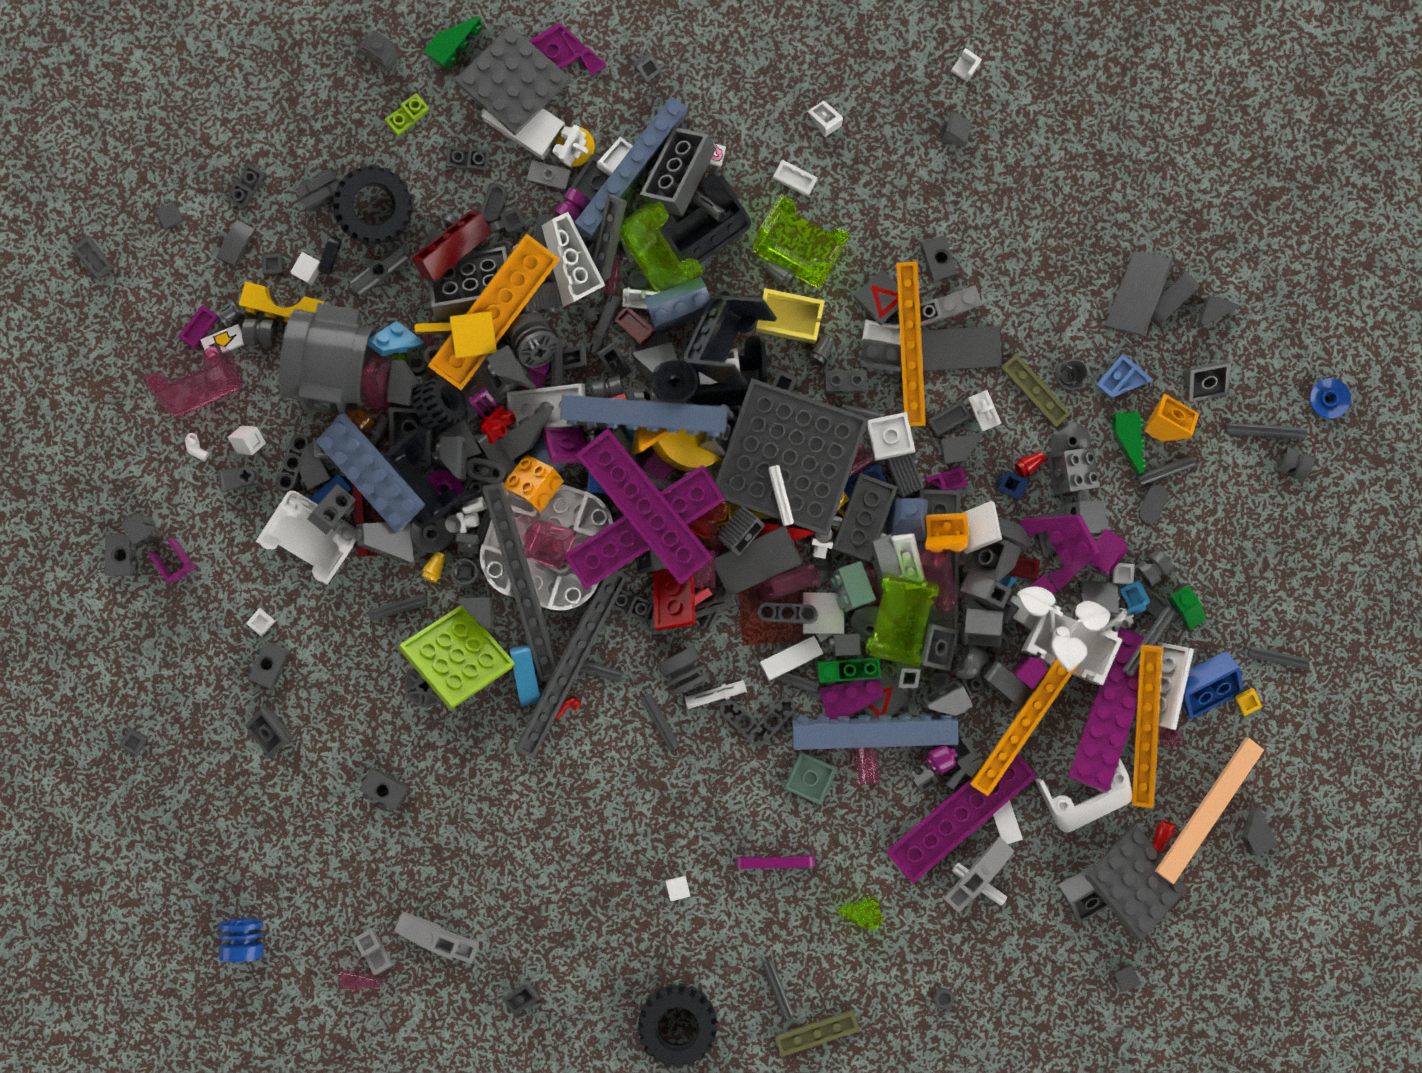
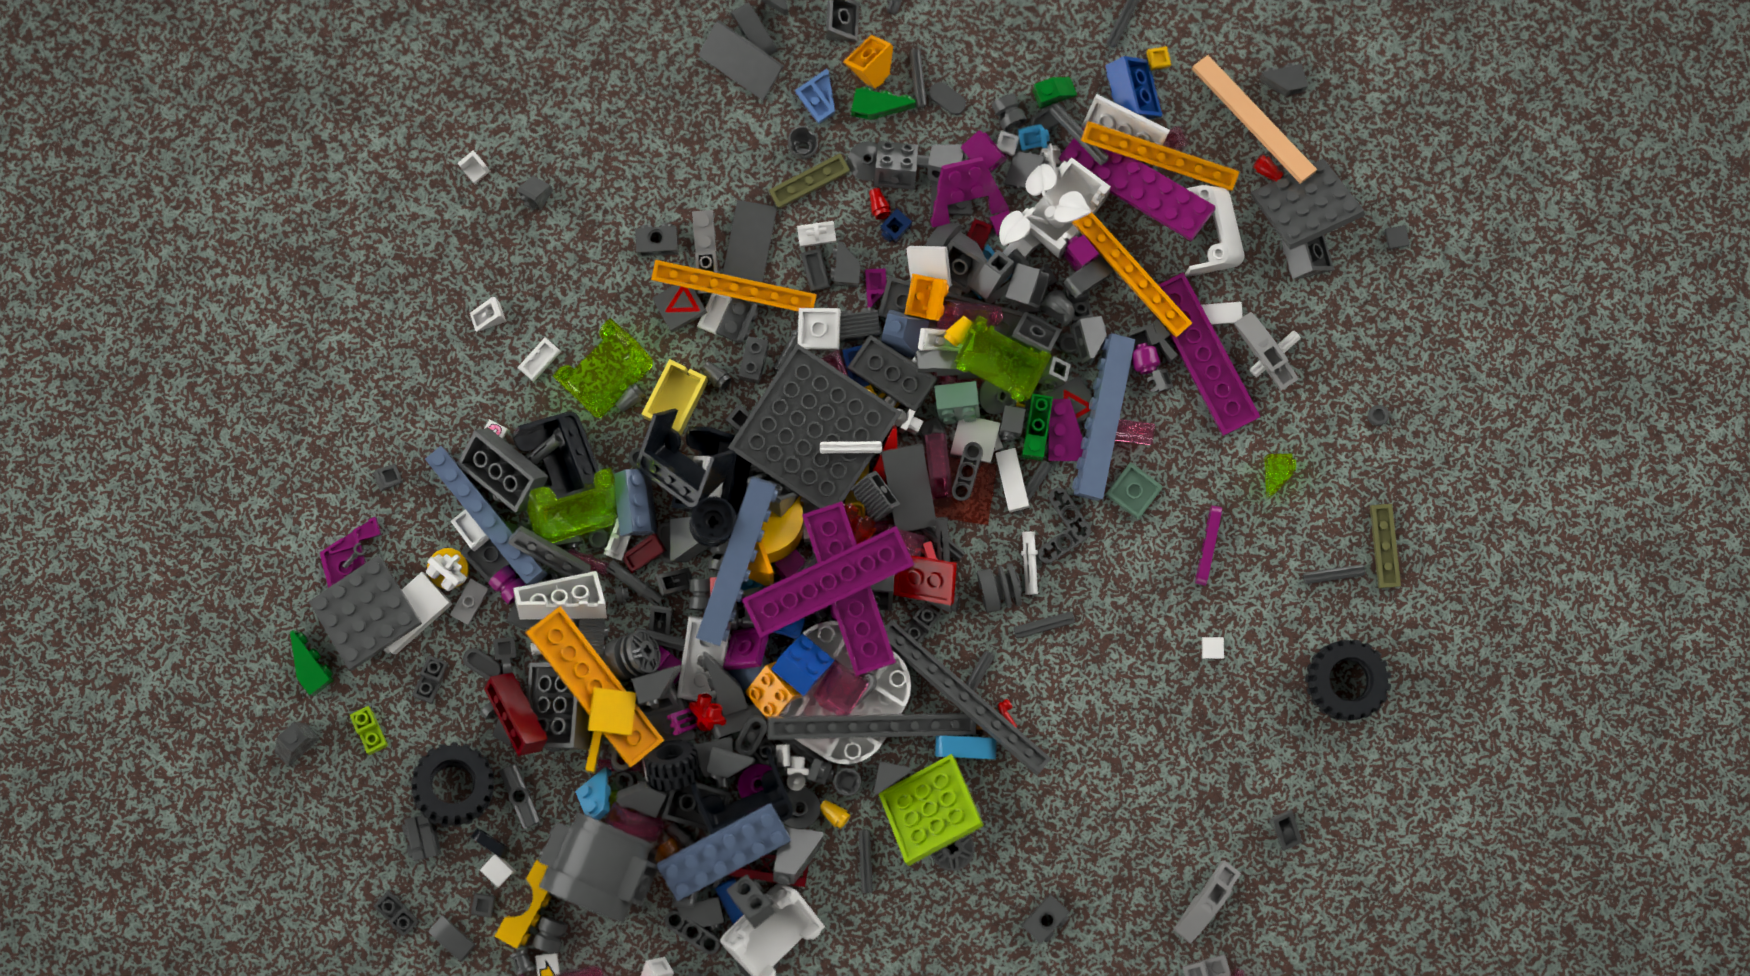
camera: 75 degrees left, 5 degrees down
(562, 502) = (803, 664): none -> blue brick
(563, 55) = (354, 556): none -> dark grey hand
(919, 570) = (958, 331): none -> yellow cone

